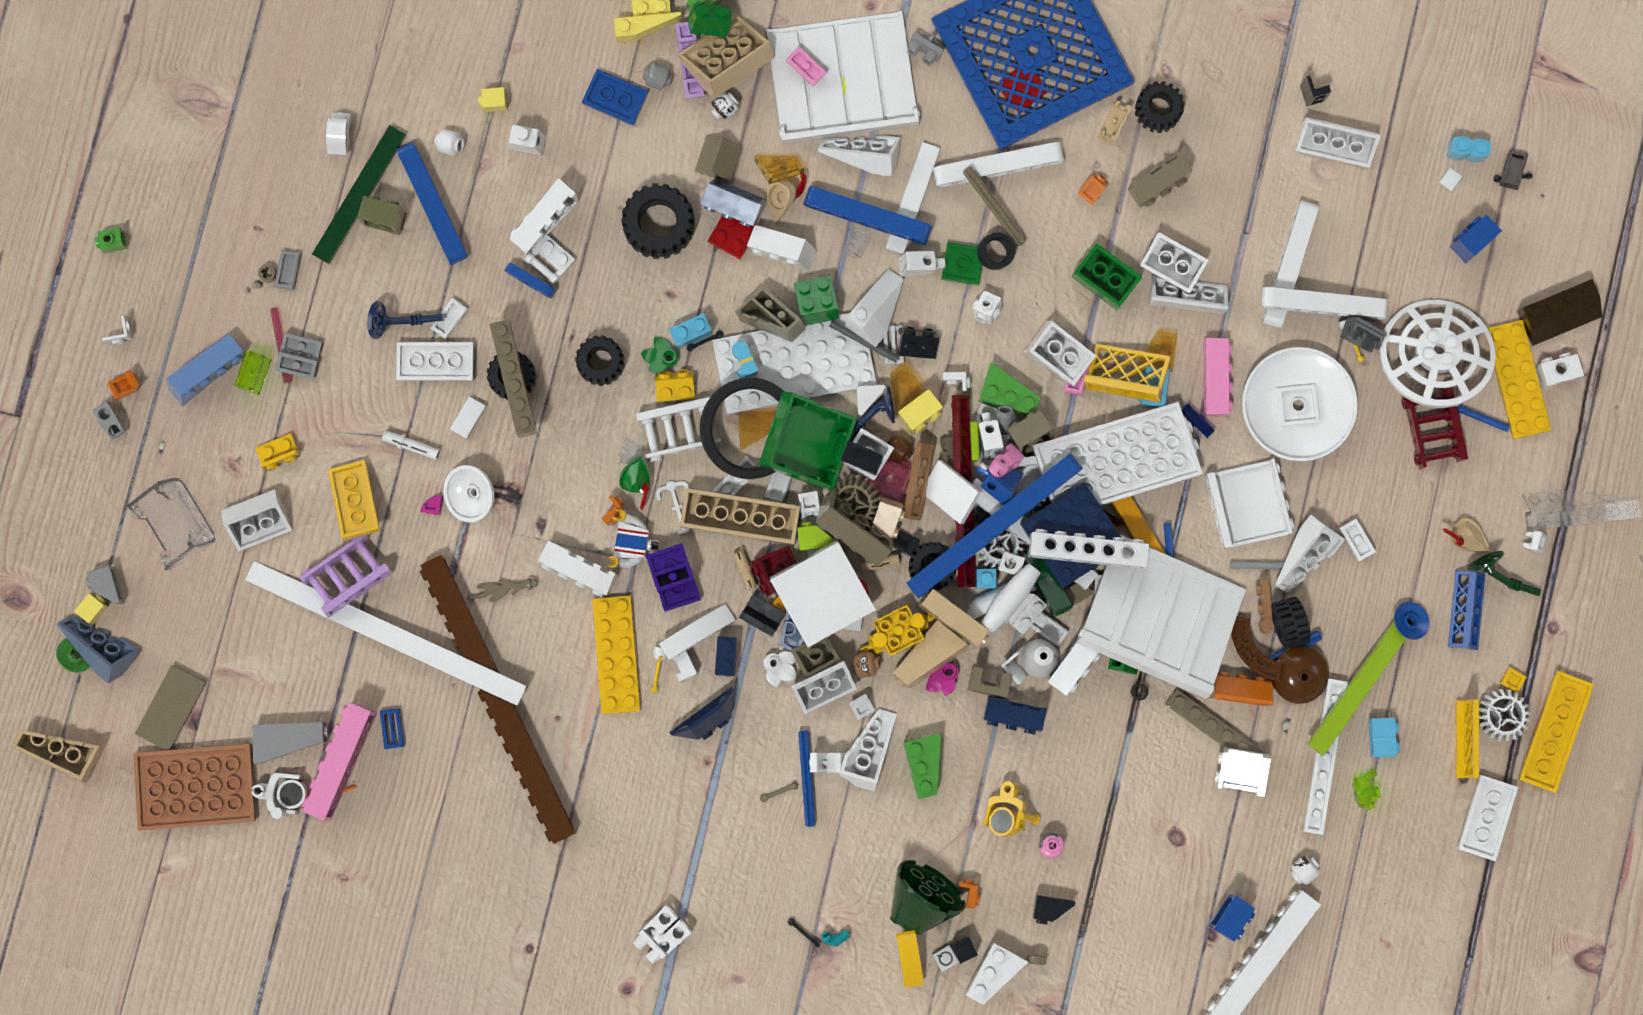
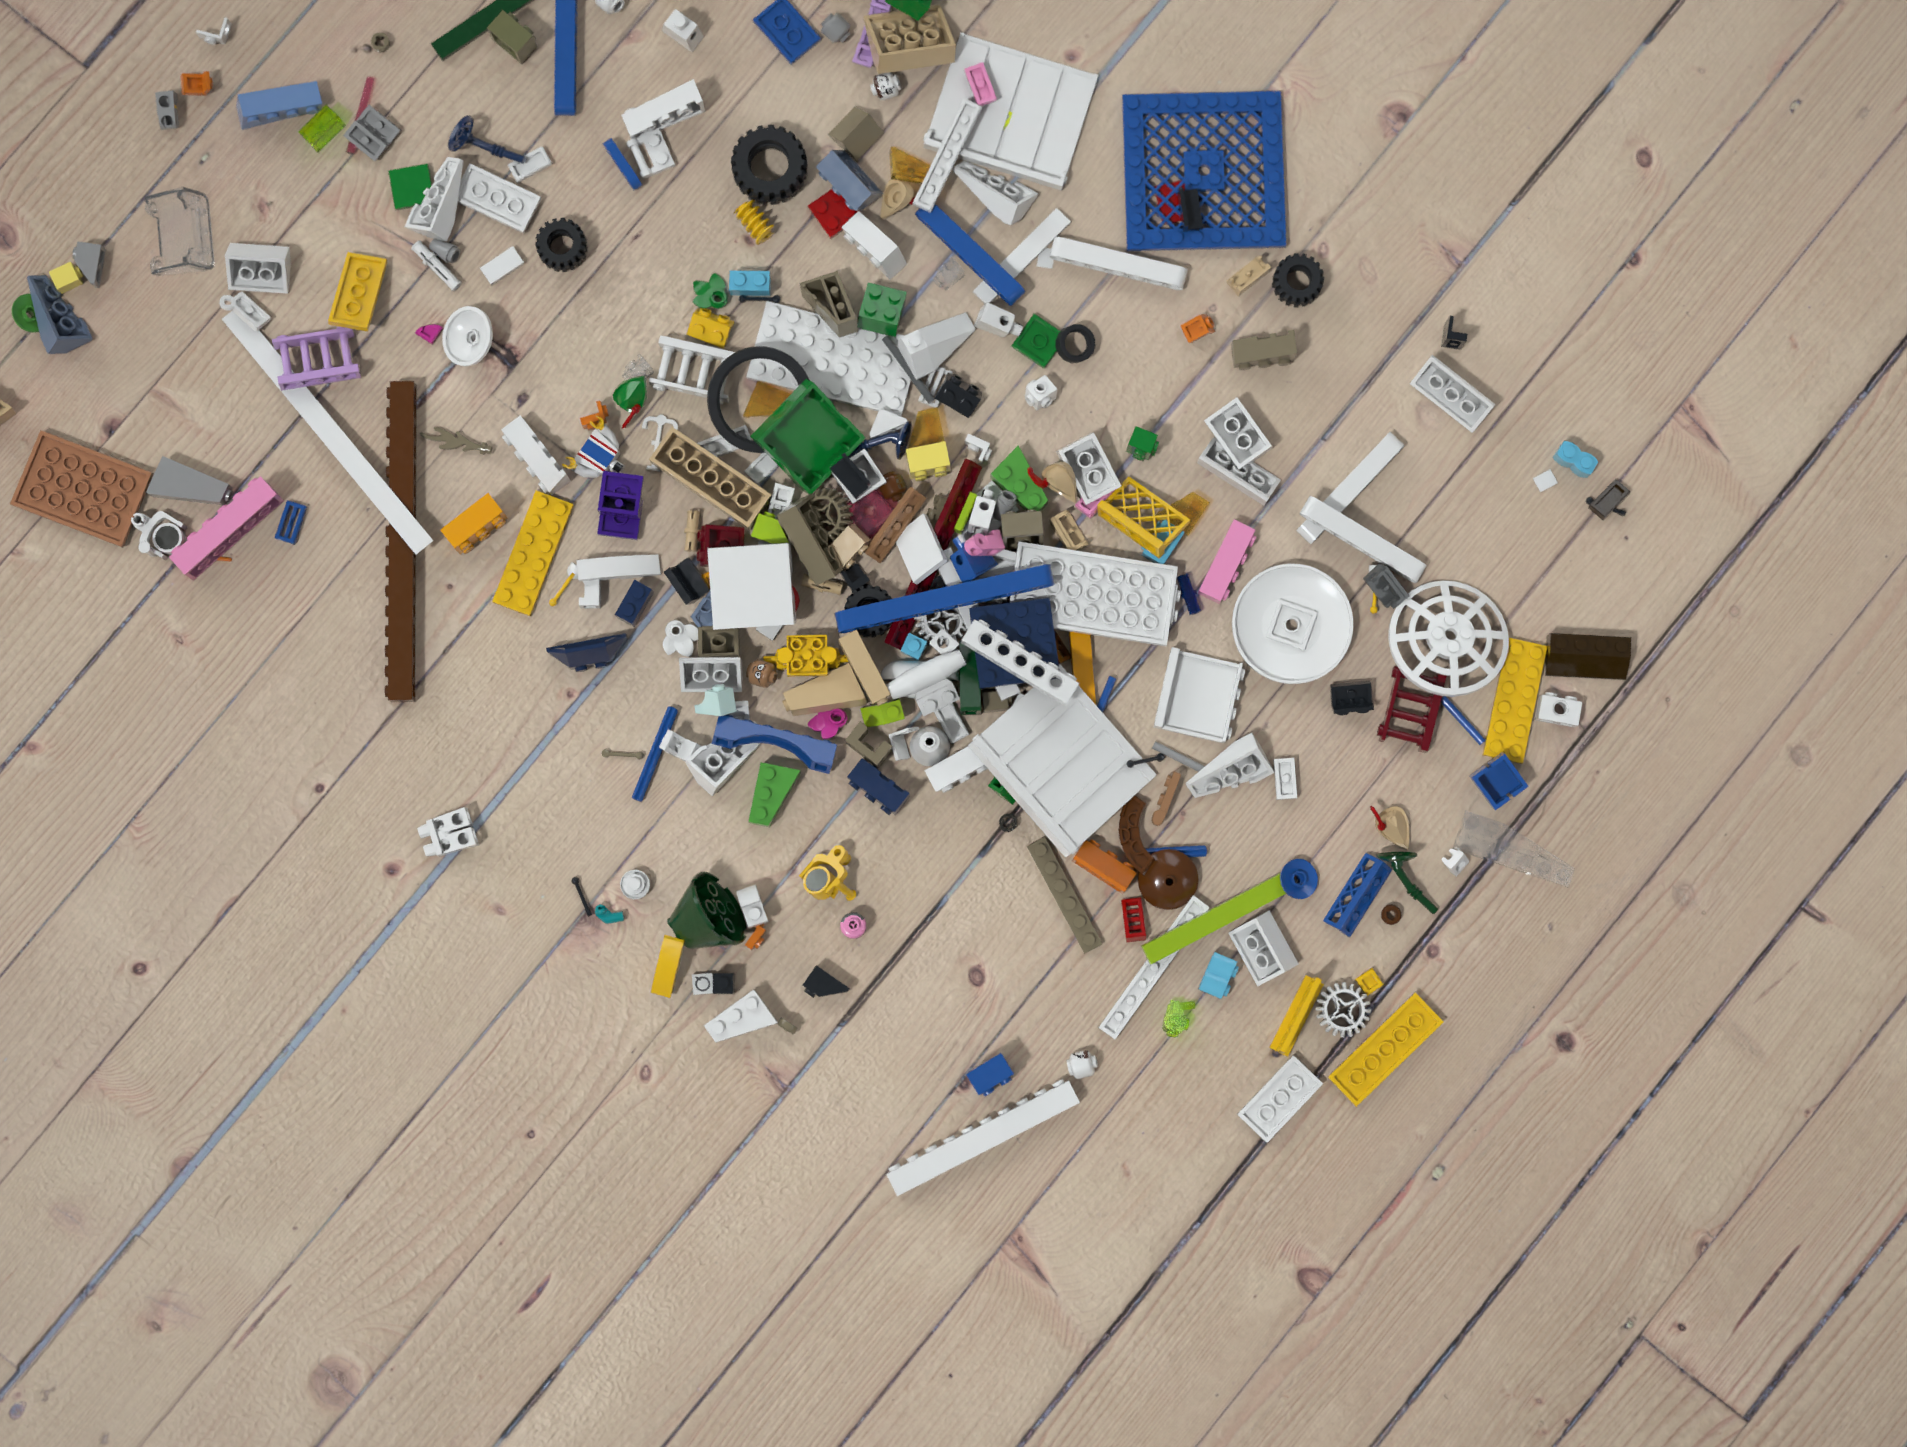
camera: 25 degrees right, 0 degrees up
(170, 708) = (95, 405): dark tan tile -> none
(263, 562) = (246, 310): none -> white hinge
(277, 451) = (309, 214): yellow bracket -> none
(287, 270) = (400, 48): light grey tile -> none
(355, 386) = (409, 185): none -> green tile
(388, 394) = (438, 210): none -> white wedge
(412, 428) = (446, 251): none -> light grey cone
(513, 378) = (560, 247): dark tan brick -> none
(554, 654) = (474, 524): none -> light orange brick
(592, 346) = (646, 254): black tyre -> none
(668, 276) = (754, 222): none -> yellow piece
(743, 355) = (787, 333): medium azure leg -> none
(807, 141) = (947, 155): none -> white tile
(842, 708) = (717, 701): none -> light aqua arch
(845, 900) = (635, 884): none -> white plate
(927, 46) = (1105, 118): light grey hips -> none
(932, 190) = (1044, 259): none -> white sticker
(946, 712) = (815, 753): none -> arch
(956, 871) = (752, 906): none -> white brick
(991, 649) = (886, 713): none -> lime slope
(994, 206) = (1094, 300): dark tan axle -> none
(1038, 90) = (1190, 210): none -> black panel
(1039, 374) = (1059, 478): none -> tan piece
(1068, 416) = (1068, 531): none -> tan hinge
(1096, 310) = (1142, 444): none -> green brick
(1106, 276) = (1168, 416): green brick -> none
(1241, 572) = (1159, 757): none -> black hinge
(1243, 770) = (1068, 942): white panel -> none
(1291, 622) = (1181, 824): black tyre -> none
(1291, 740) = (1133, 937): none -> red slope
(1379, 443) = (1351, 697): none -> black bracket
(1410, 695) = (1263, 948): none -> white slope
(1479, 234) = (1539, 546): blue brick -> none
(1509, 613) = (1397, 912): none -> reddish brown plate
(1538, 455) = (1498, 781): none -> blue piece

